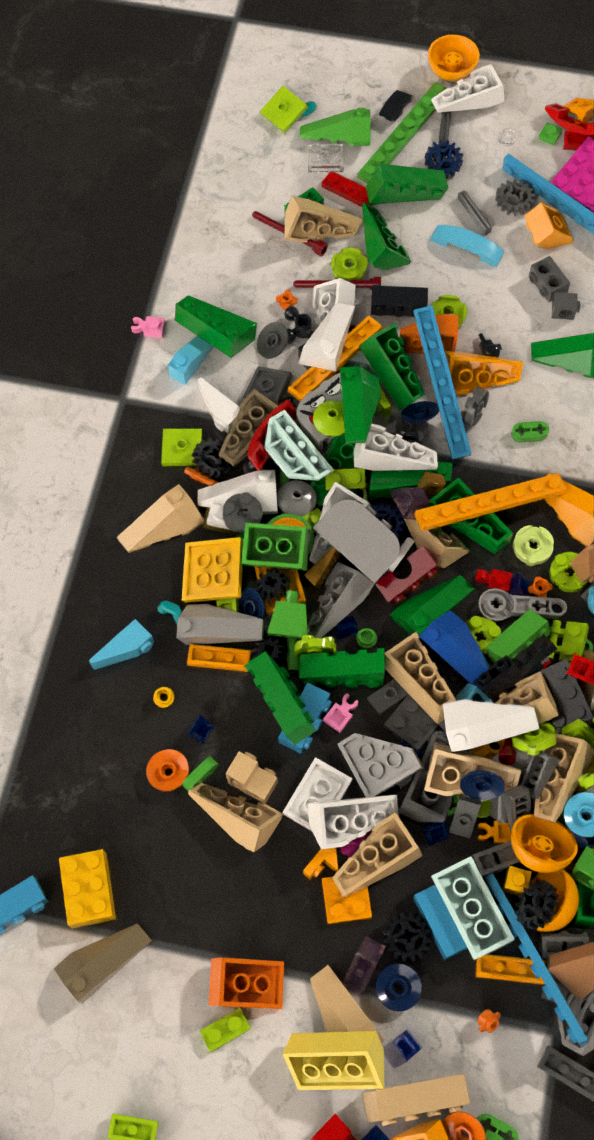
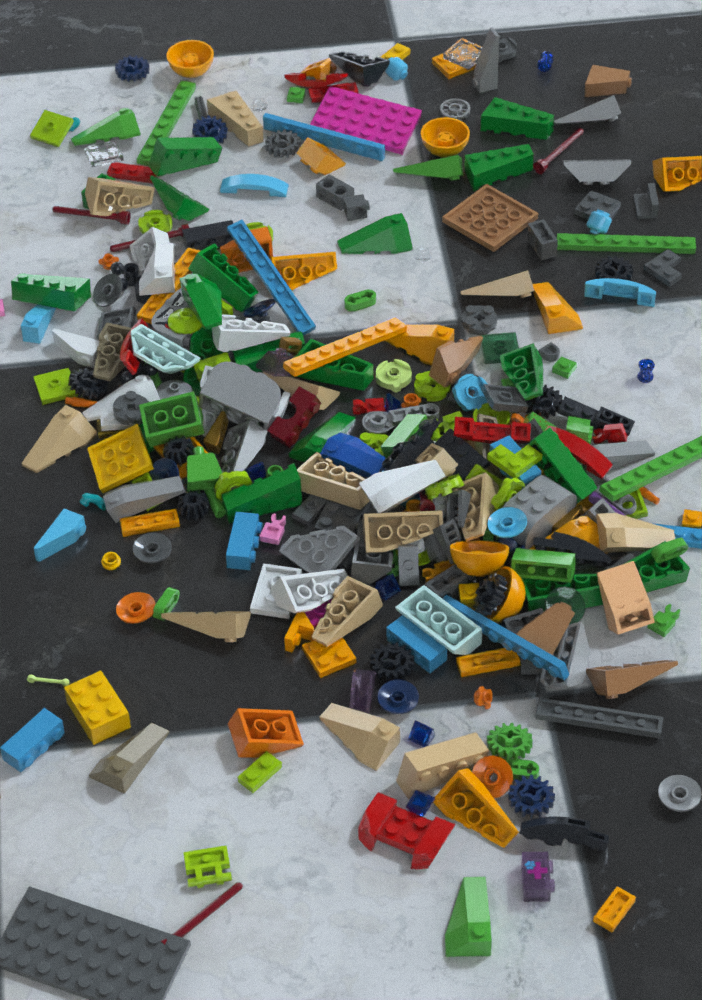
camera: 20 degrees left, 20 degrees down
(69, 838) = (31, 678): none -> yellowish green hinge
(200, 729) = (153, 574): clear blue slope -> none
(207, 687) = (152, 548): none -> dark grey dish
(250, 778) = (212, 593): tan brick -> none
(281, 697) = (216, 522): green wedge -> none
(336, 1060) = (364, 751): light yellow slope -> none
(390, 52) = (132, 68): none -> dark blue gear
(394, 105) = (150, 104): black slope -> none
(474, 212) = (251, 162): dark grey axle -> none
(475, 405) = (307, 288): dark grey plate -> none
(476, 144) = (237, 116): none -> tan wedge
(477, 91) = (222, 76): white wedge -> none
(482, 785) = (413, 534): dark blue dish -> none
(488, 348) = (298, 250): black piece -> none
(506, 1098) = (509, 741): none -> bright green gear

